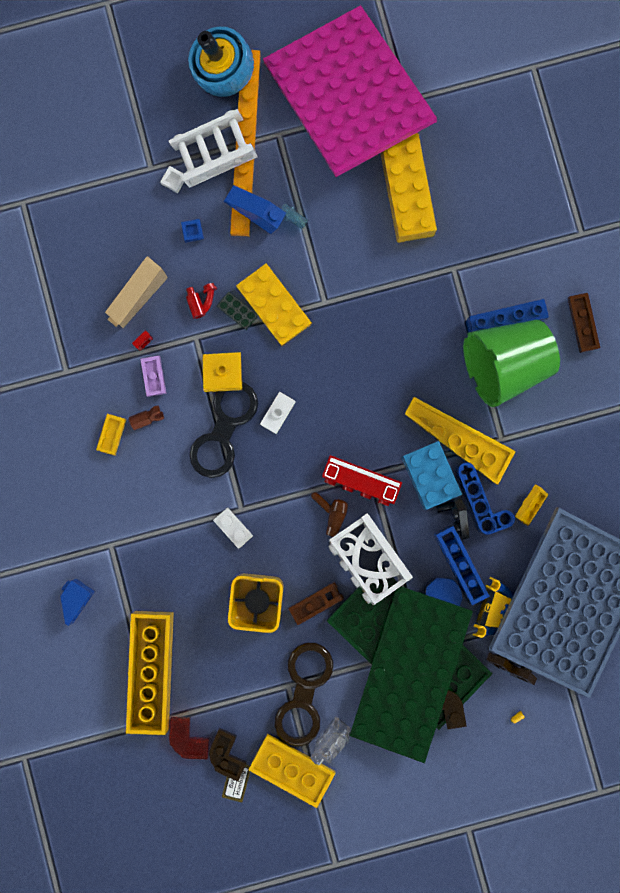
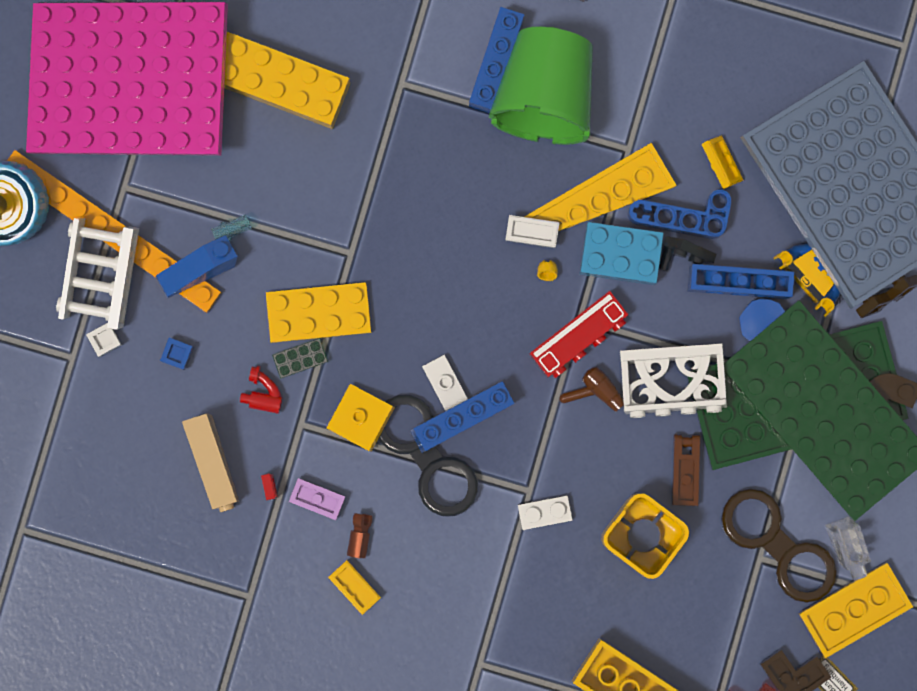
camera: 60 degrees left, 0 degrees up
(261, 436) = (462, 417): none -> blue brick
(390, 434) = (547, 271): none -> yellow hinge
(410, 409) = (532, 231): none -> white tile

